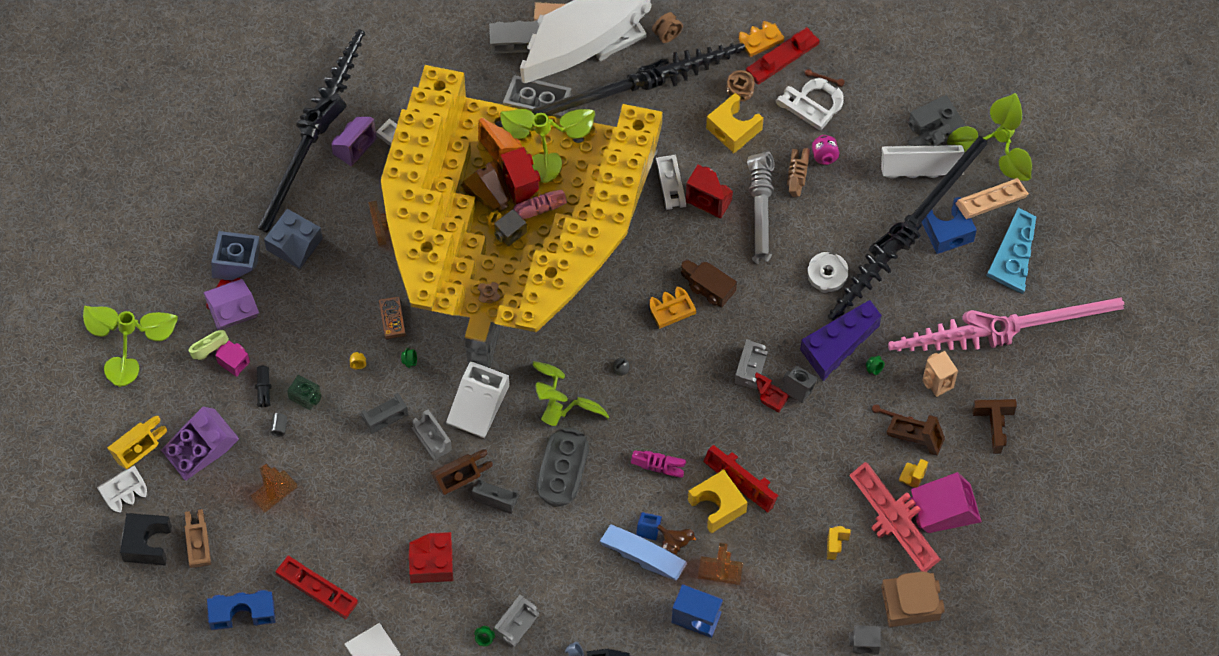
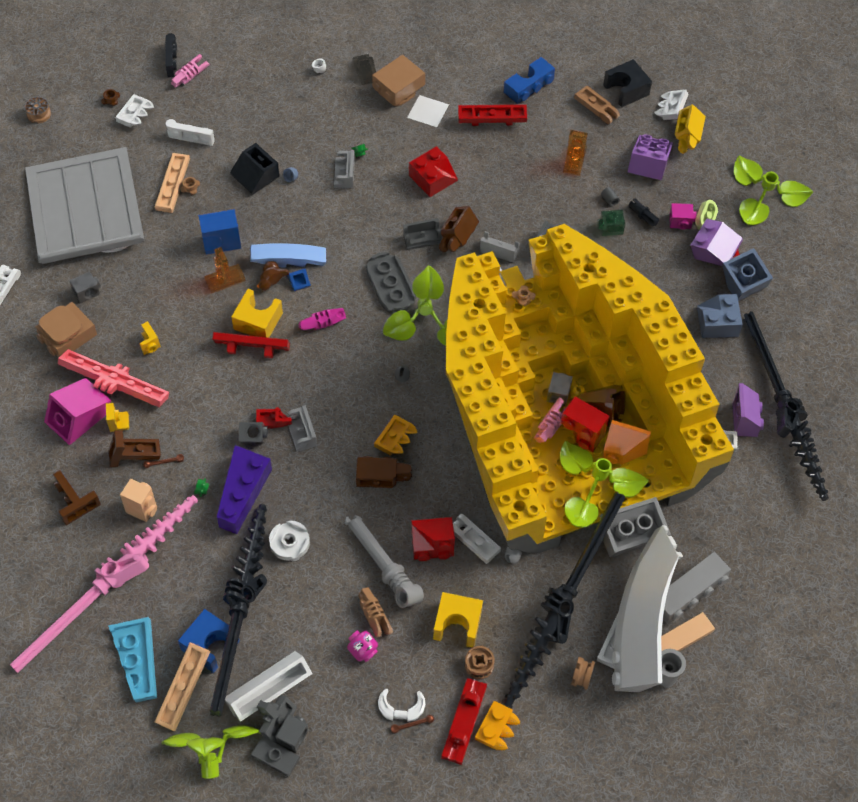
camera: 145 degrees right, 5 degrees down
(804, 108) = (409, 677): white plate -> none

